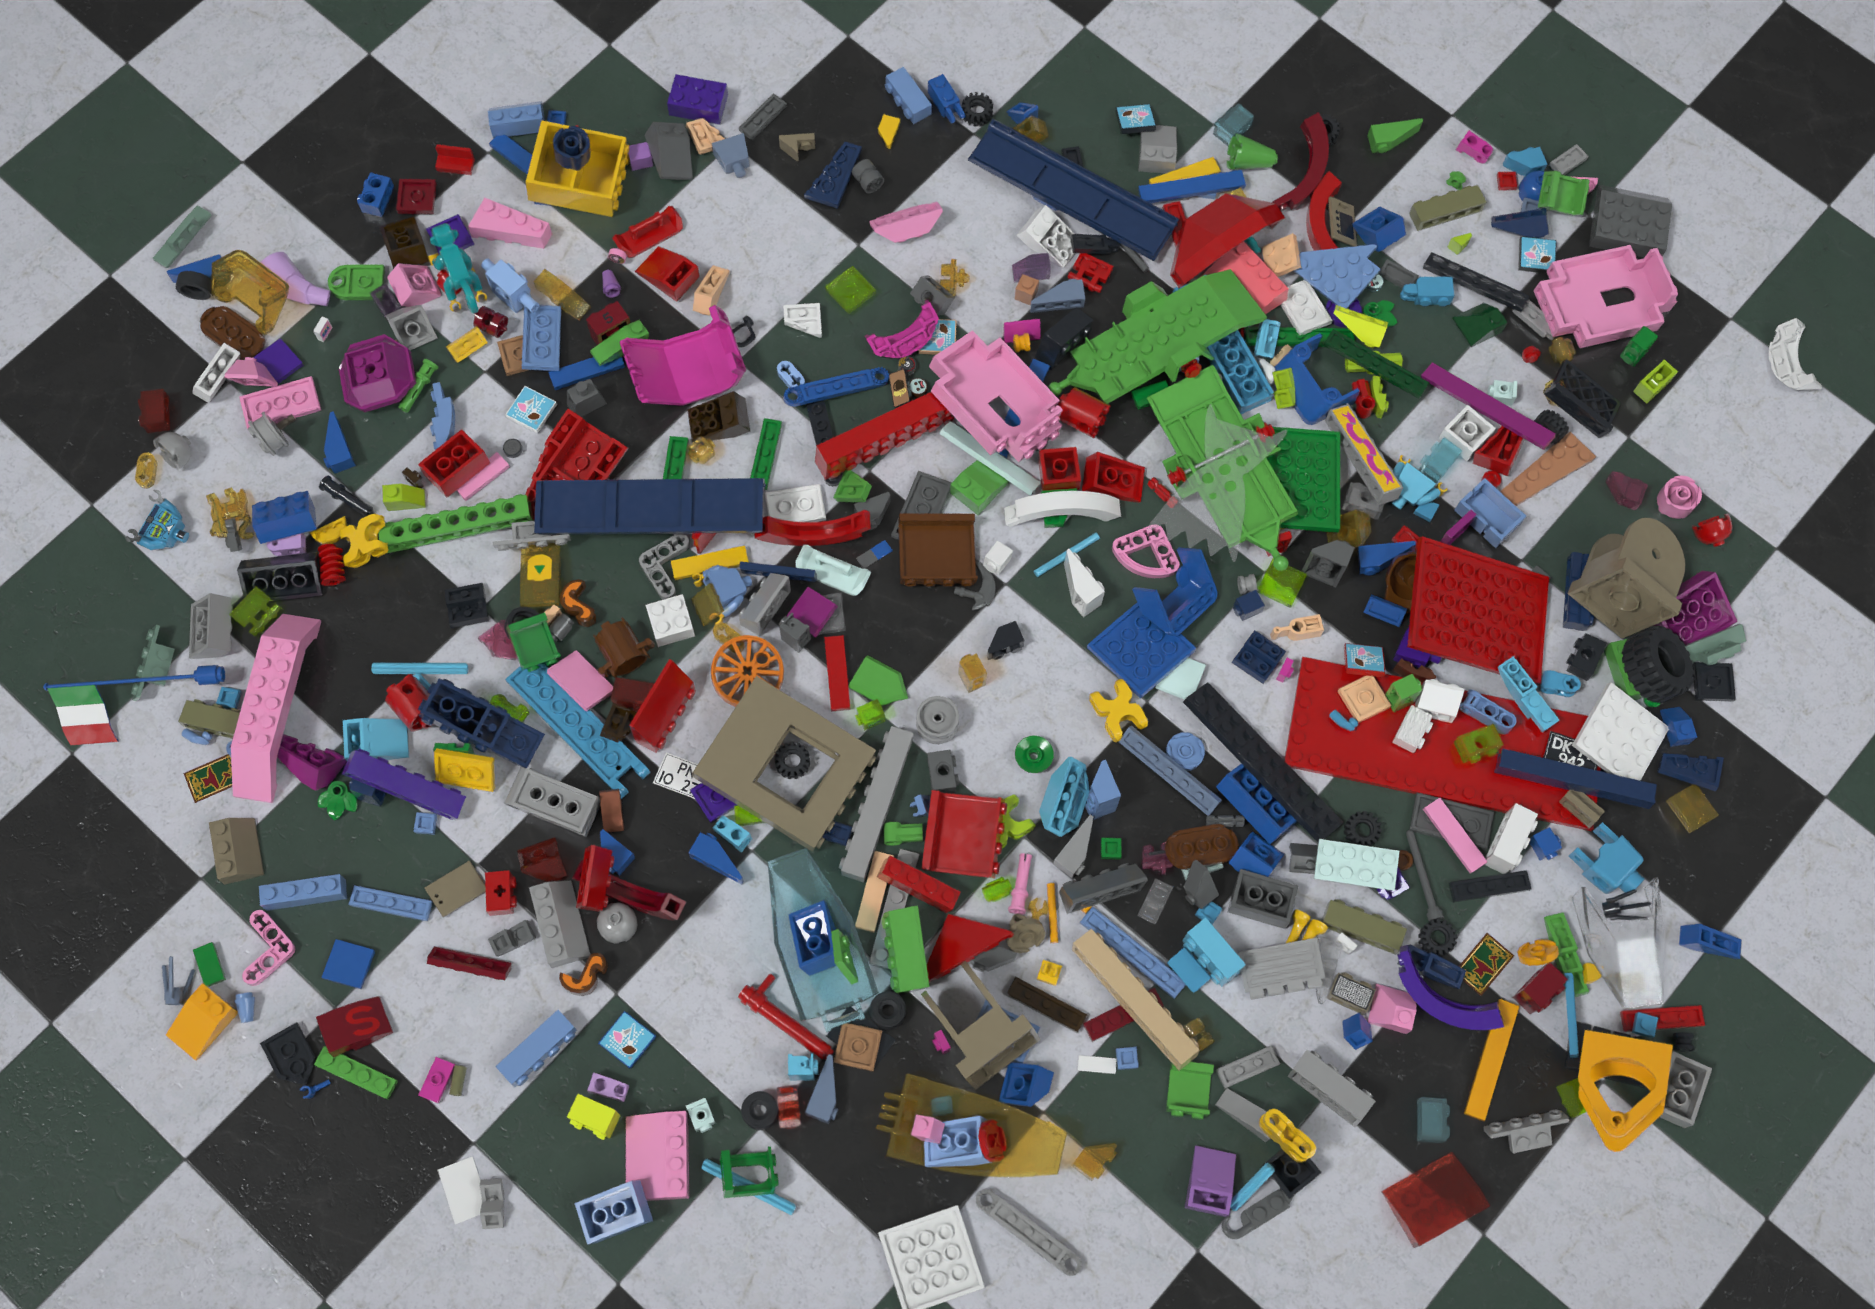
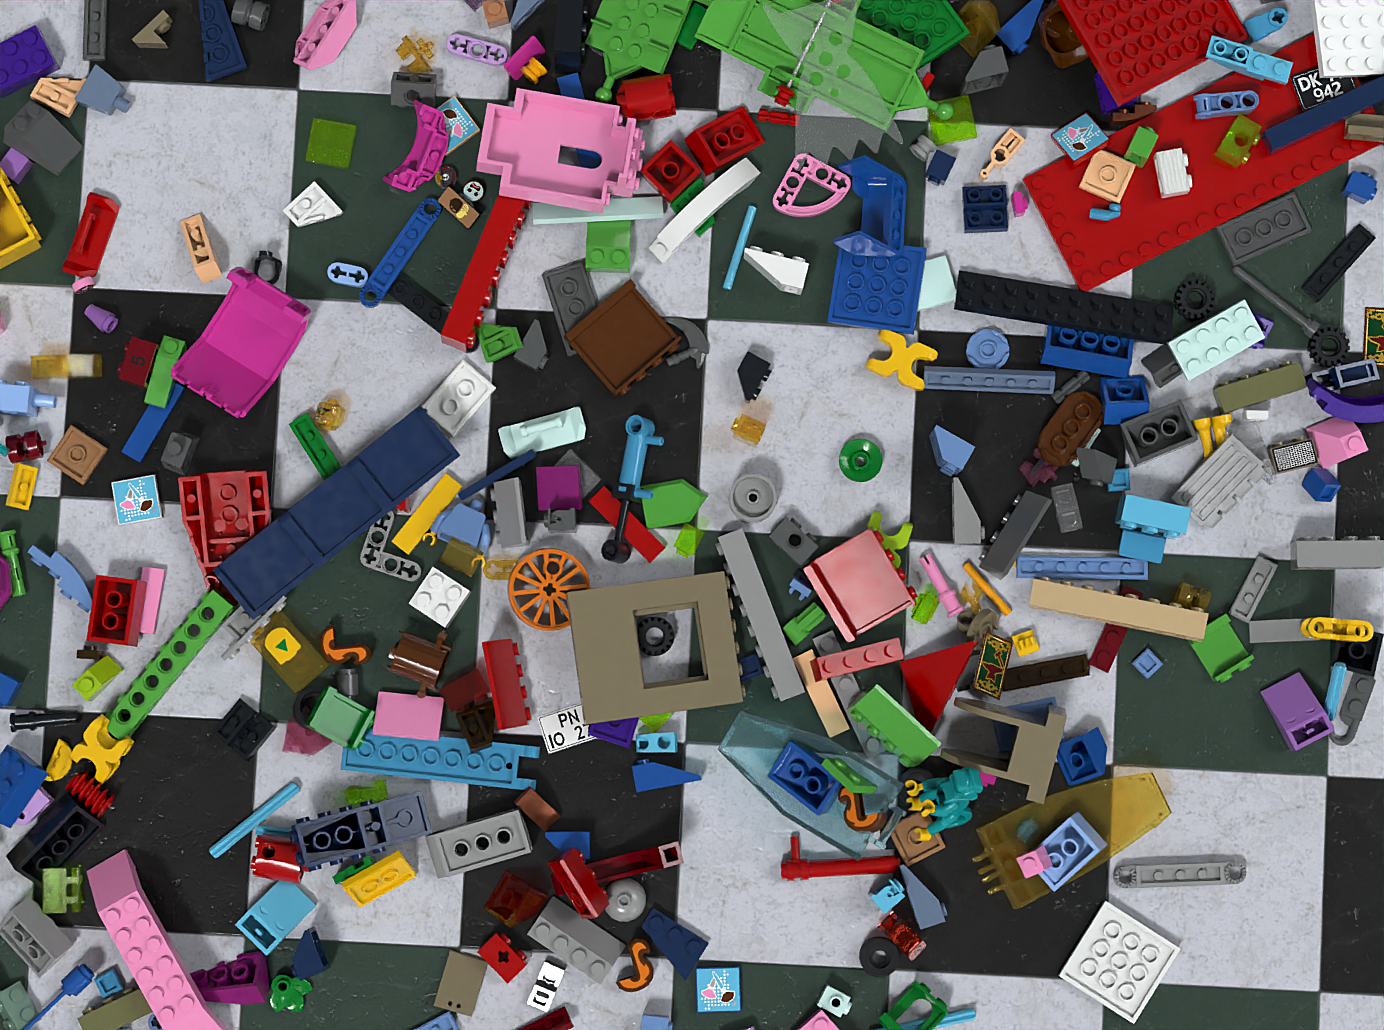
camera: 35 degrees left, 15 degrees up
(404, 785) = (342, 938): dark purple brick -> none
(425, 823) = (383, 949): medium blue tile -> none
(512, 448) = (153, 550): tile -> none
(541, 338) = (86, 424): medium blue tile -> none
(552, 613) = (329, 677): light nougat plate -> none
(626, 981) = (675, 941): none -> dark blue wing
(669, 272) = (145, 263): red slope -> none
(719, 418) = (318, 370): dark brown slope -> none
(766, 450) = (388, 369): green tile -> none
(814, 533) = (501, 408): red arch -> none
(826, 989) = (855, 813): none -> reddish brown animal
(857, 648) = (628, 487): none -> piece
(874, 554) = (566, 385): sticker -> none
(899, 1027) = (952, 798): none -> teal animal
(992, 1140) = (1095, 828): red tile -> none
(994, 297) = (472, 42): none -> lavender beam
(997, 558) = (682, 303): white brick -> none
(1012, 966) = (992, 665): none -> sticker
(1065, 797) = (919, 480): medium azure wedge -> none
(1093, 1158) = (1186, 773): clear yellow slope -> none
(1096, 1064) = (1125, 688): white sticker -> none
(1110, 848) = (992, 491): green plate -> none
(1385, 610) = (1063, 75): blue tile -> none
(1405, 860) = (1250, 296): reddish brown tile -> none
(1440, 700) = (1177, 128): white slope -> none
(1455, 835) = (1277, 242): bright pink tile -> none
(1511, 839) = (1328, 208): white brick -> none

